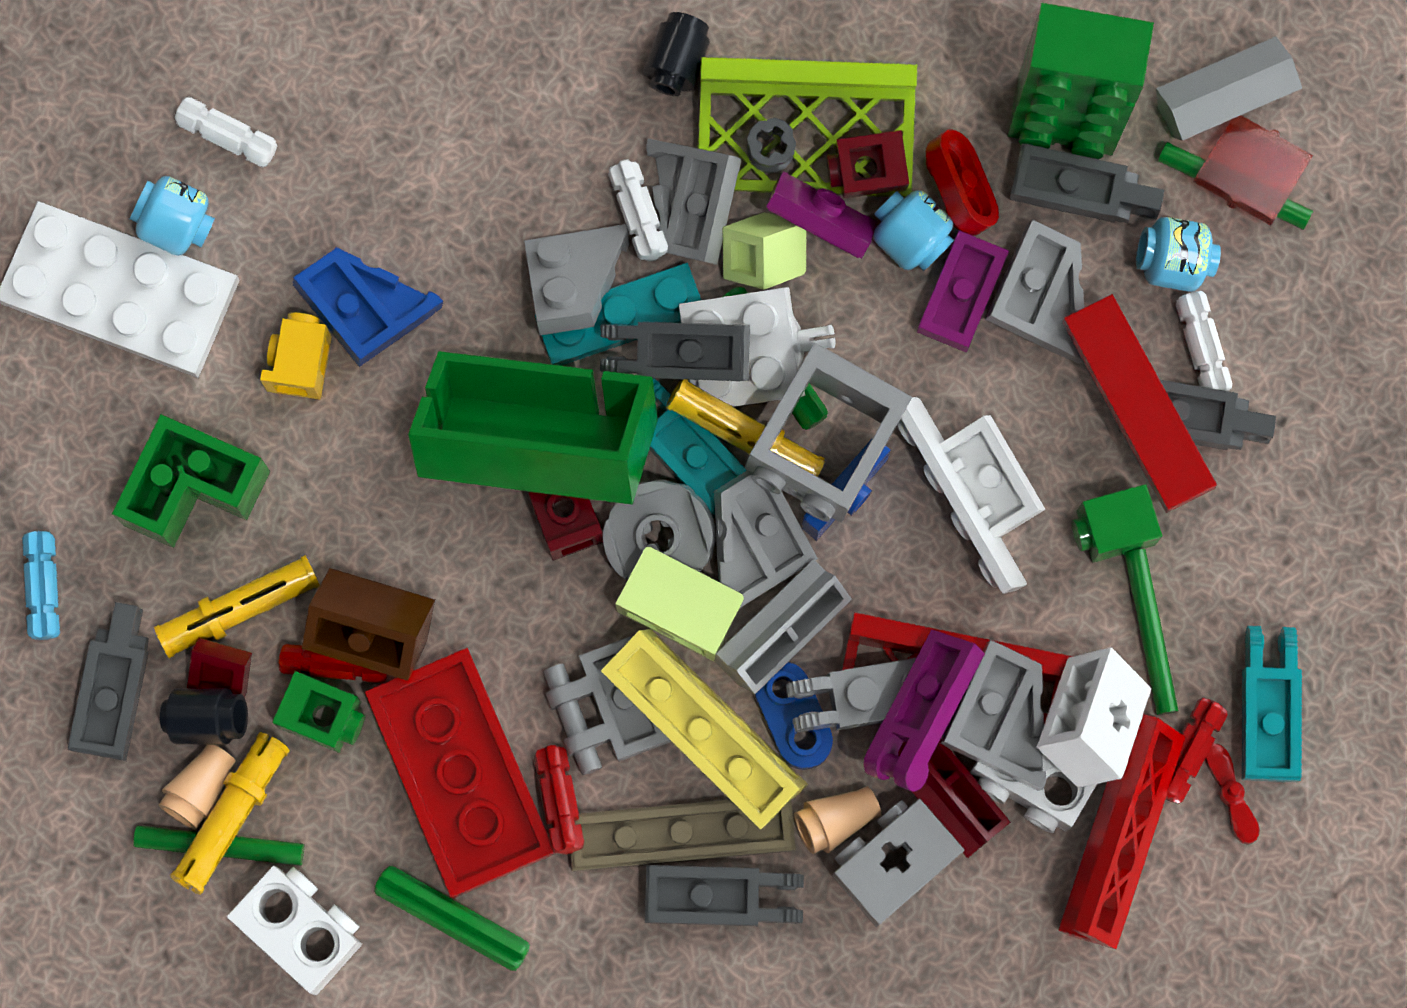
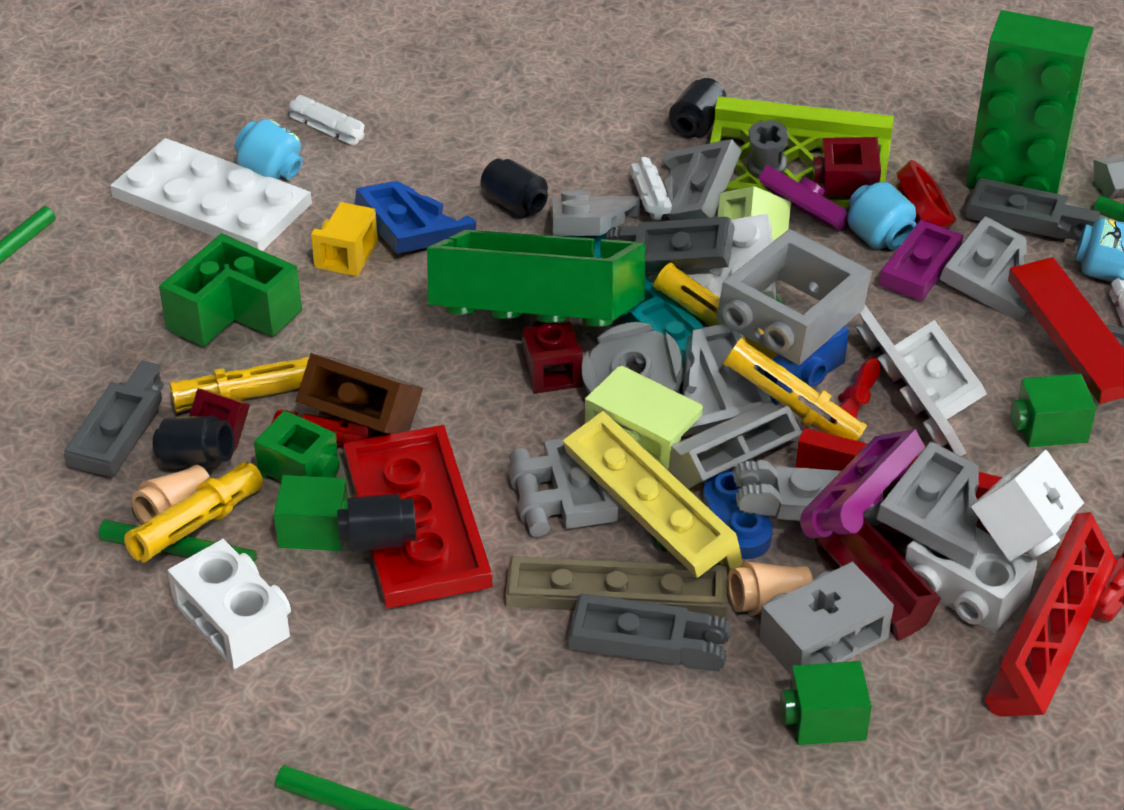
camera: 10 degrees right, 35 degrees down
(41, 585) = (81, 356): medium azure axle -> none
(355, 794) = (308, 512): none -> green brick
(428, 823) = (377, 522): none -> black brick
(451, 918) = (382, 620): green axle -> none
(478, 236) = (514, 187): none -> black brick
(559, 799) = (504, 540): red axle -> none
(858, 564) = (742, 360): none -> yellow pin
(904, 525) = (859, 393): none -> red piece
(906, 966) = (827, 703): none -> green brick
(1151, 632) = (1079, 476): green bar -> none

